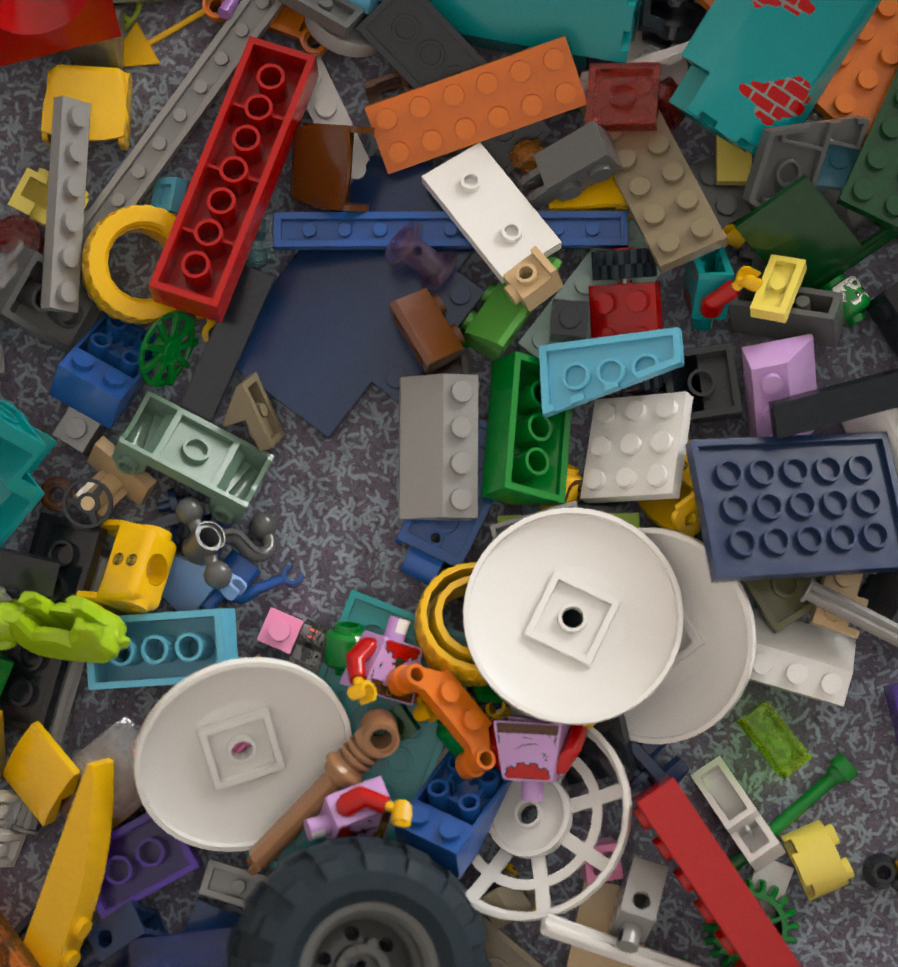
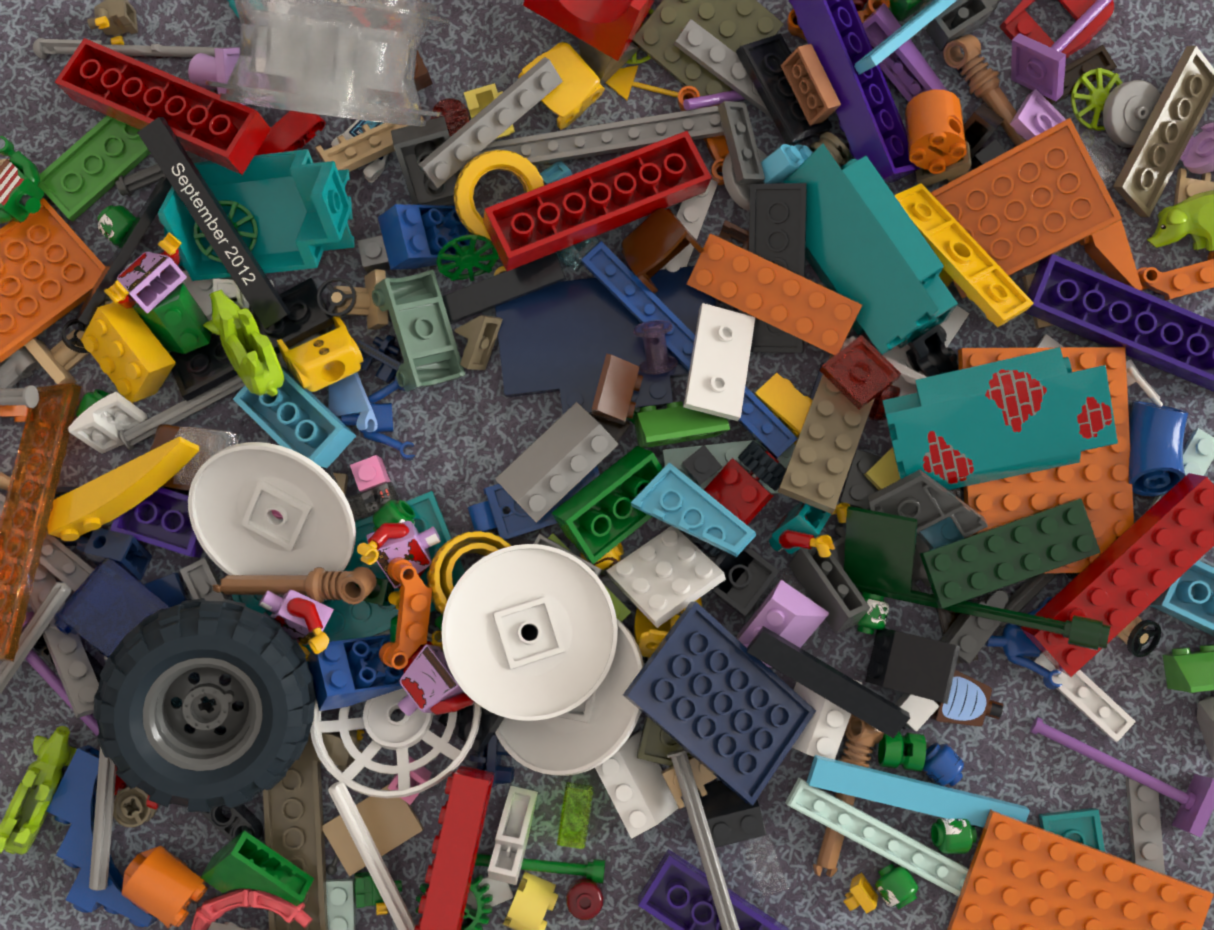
camera: 50 degrees right, 0 degrees up
(41, 773) = (160, 417): yellow slope -> none
(49, 486) = (328, 269): reddish brown plate -> none
(217, 573) = (365, 407): dark grey piece -> none
(524, 154) = (774, 351): clear orange plate -> none
(532, 280) = (700, 422): tan brick -> none
(571, 165) = (791, 381): dark grey hinge -> none
(634, 912) = (400, 828): light grey torso -> none
(779, 288) = (836, 568): light yellow plate -> none
(856, 802) = (584, 899): none -> dark red head

